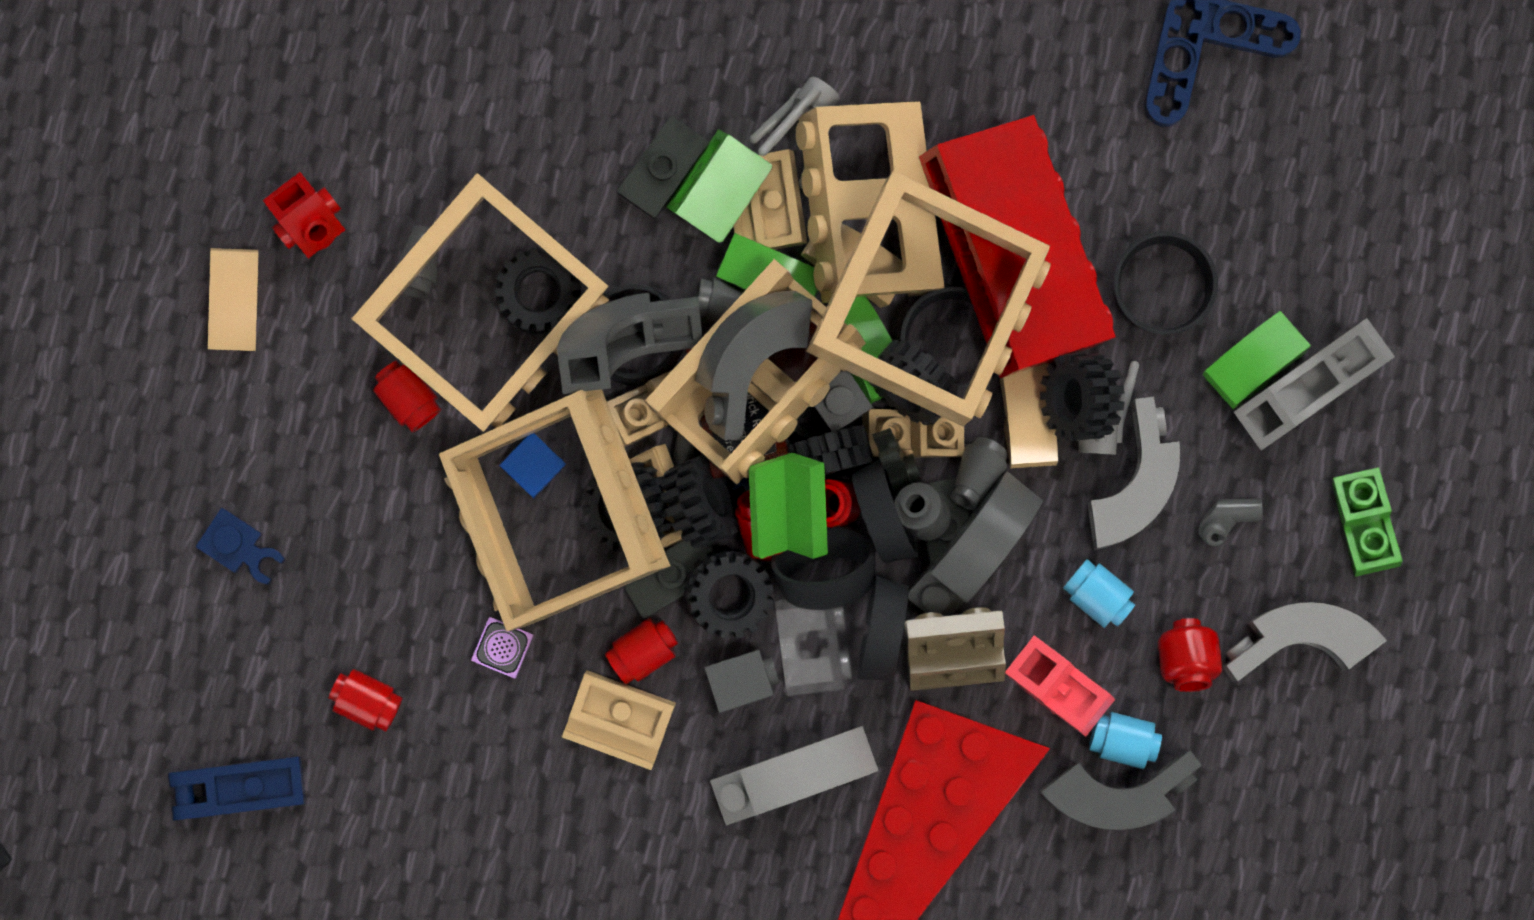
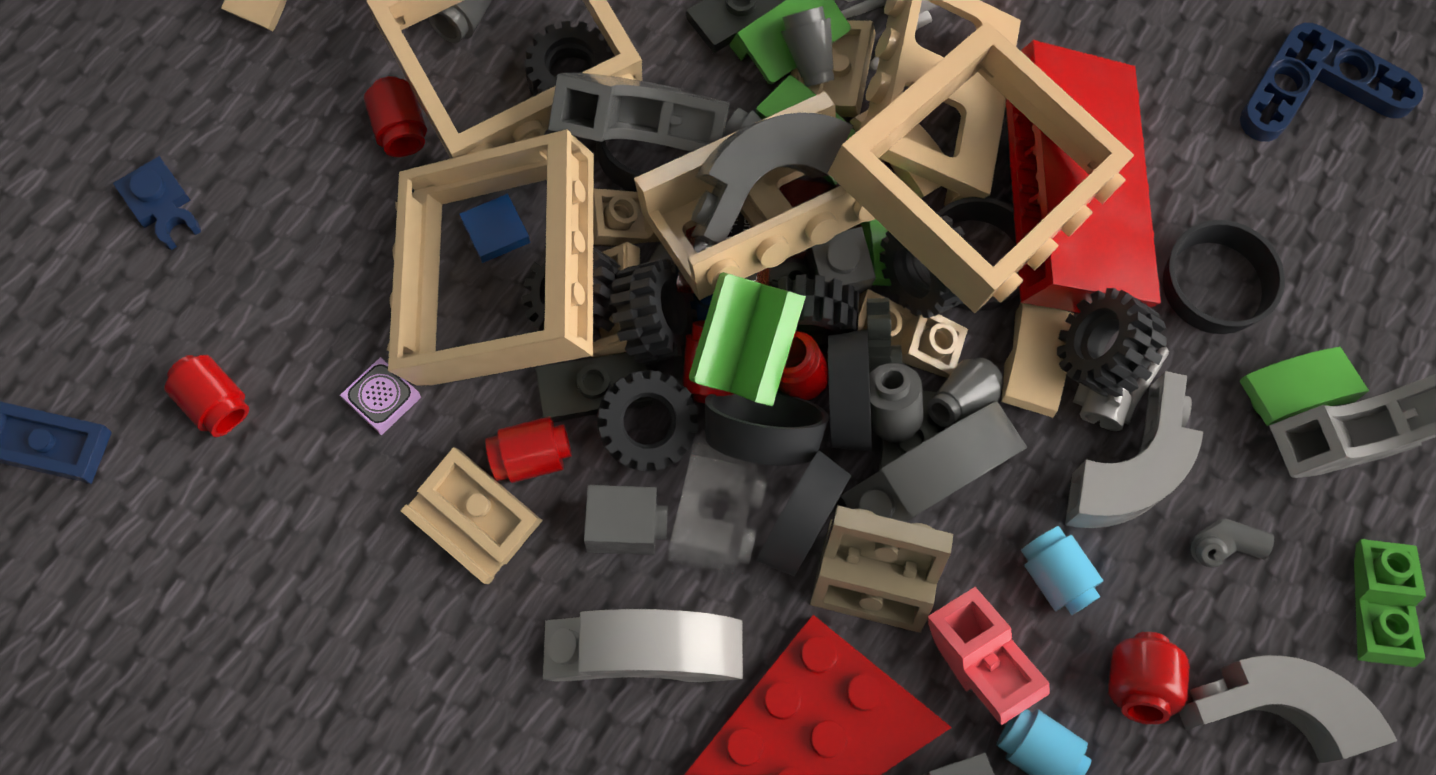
camera: 15 degrees right, 15 degrees down
(743, 203) = (810, 44): none -> dark grey cone

